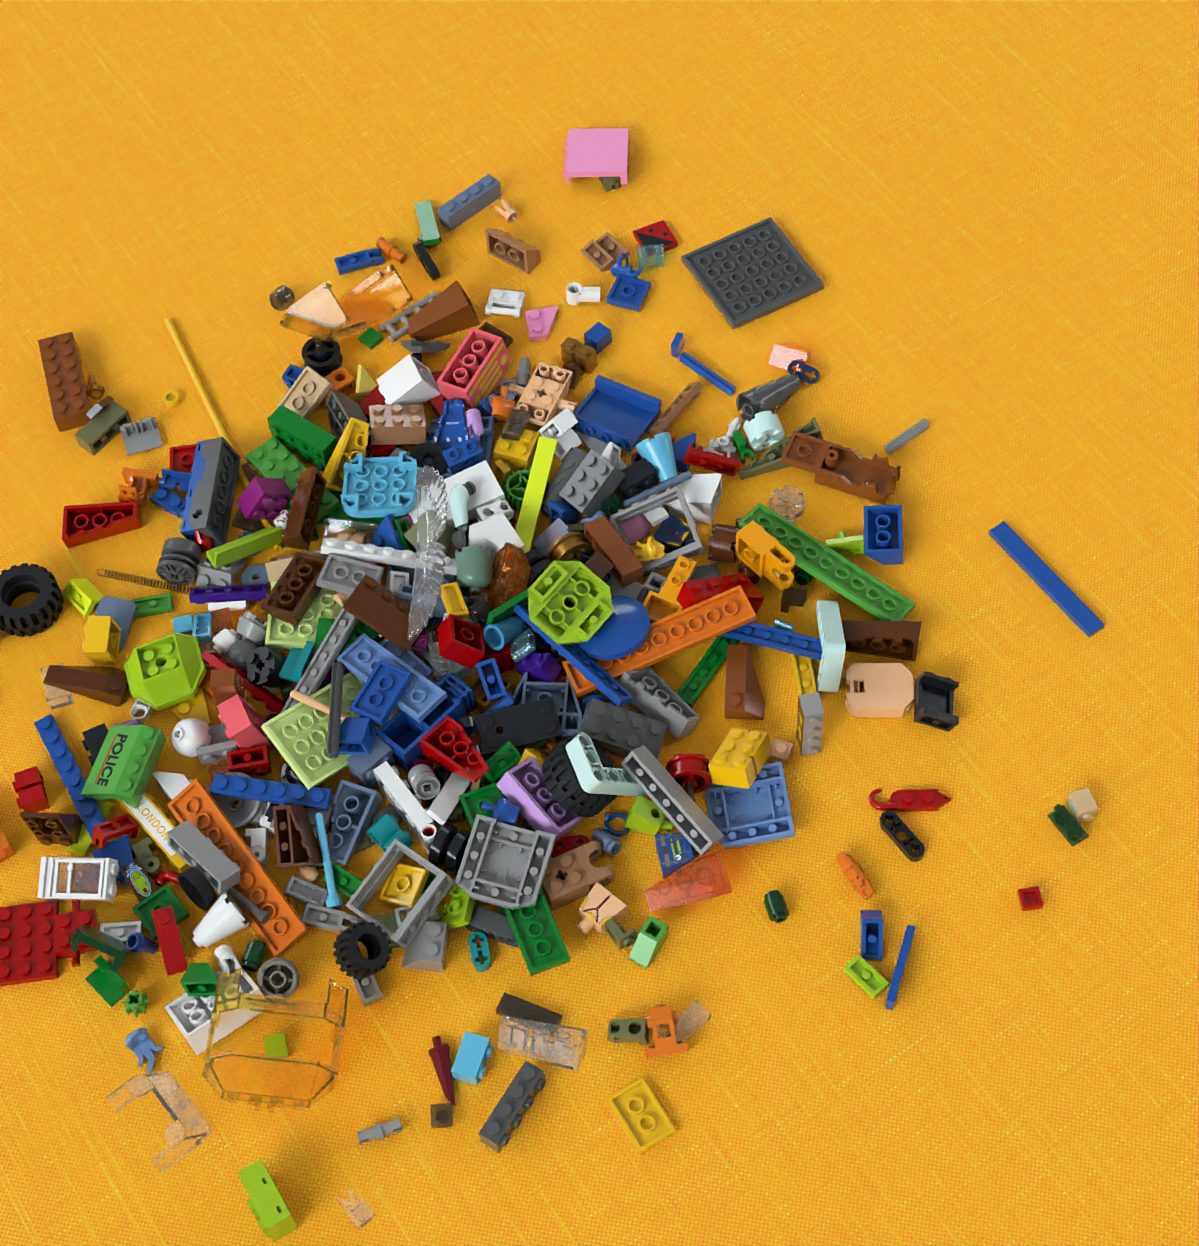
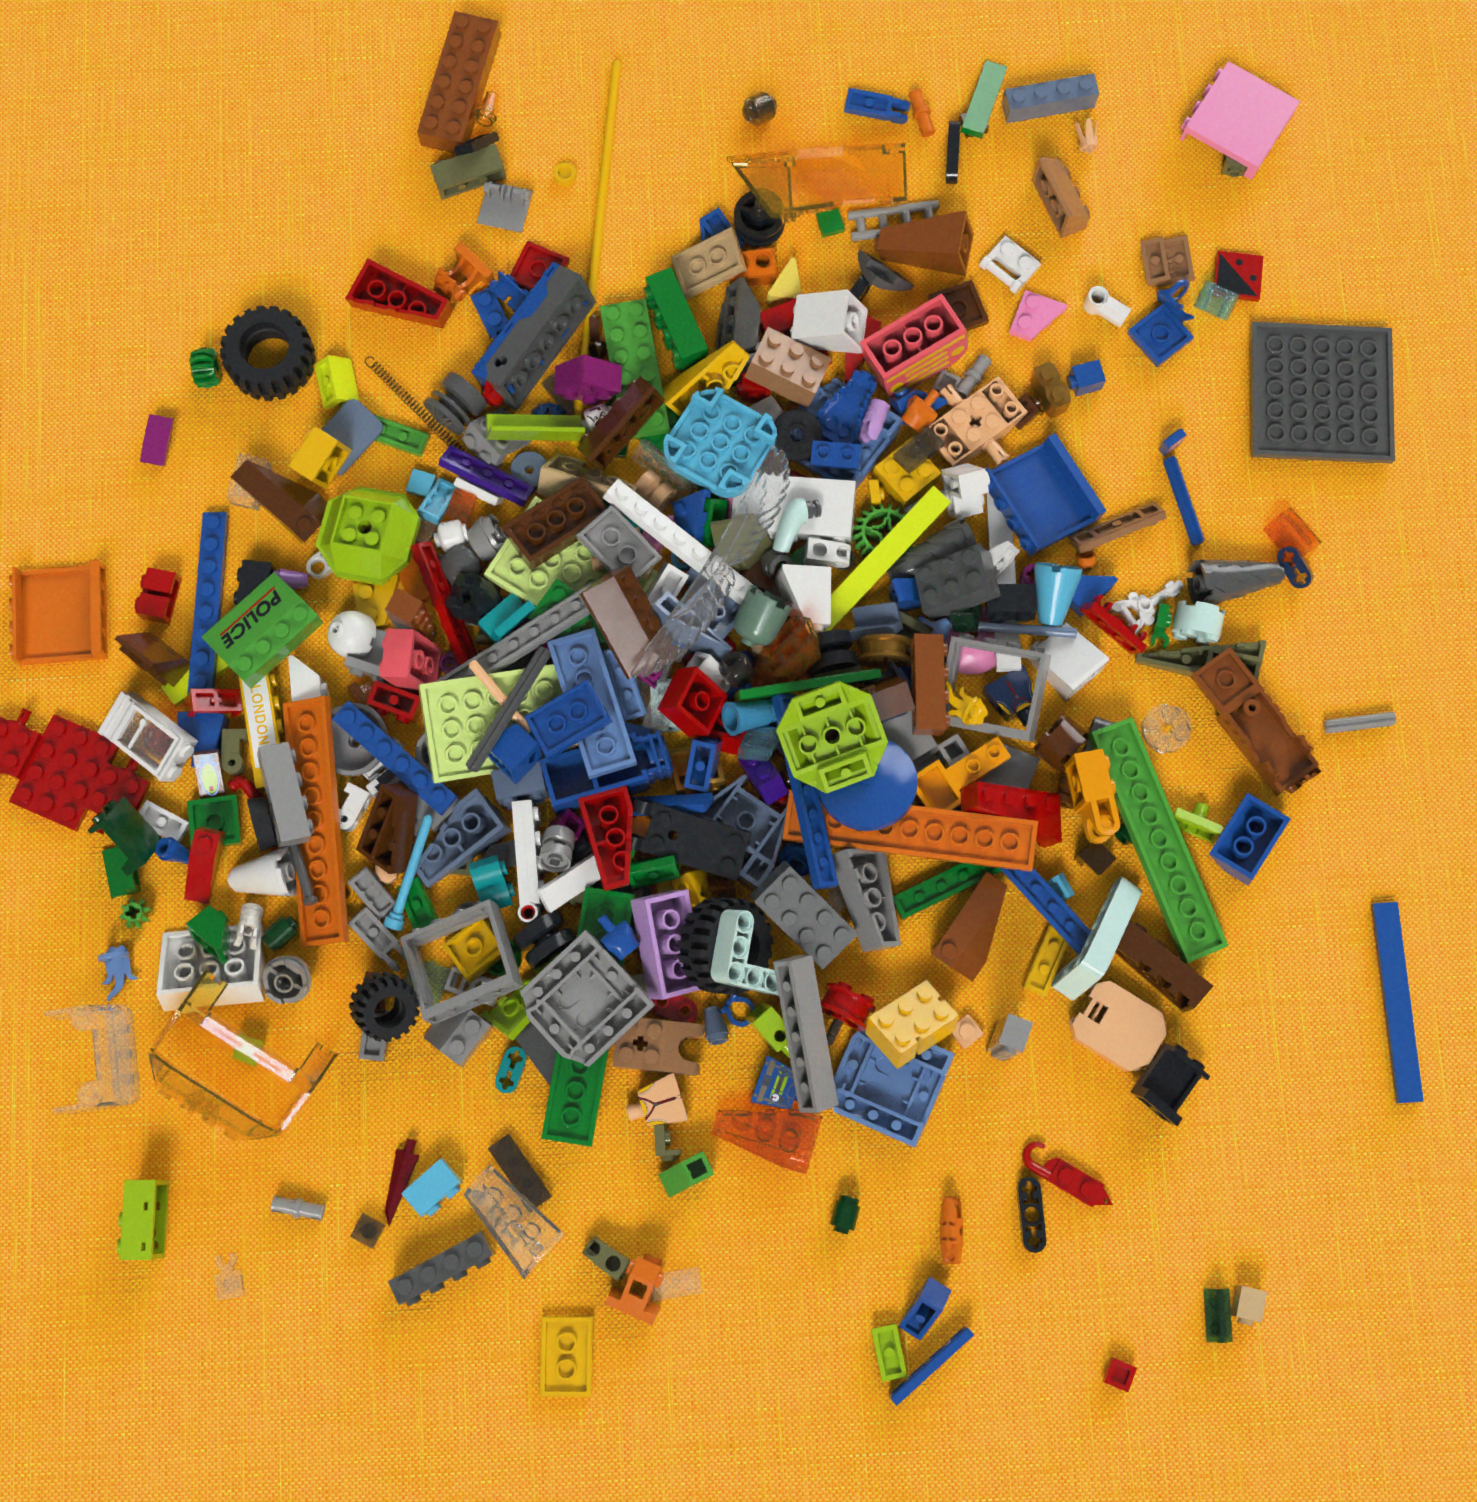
camera: 25 degrees right, 20 degrees up
(453, 600) = (712, 648): yellow tile -> none

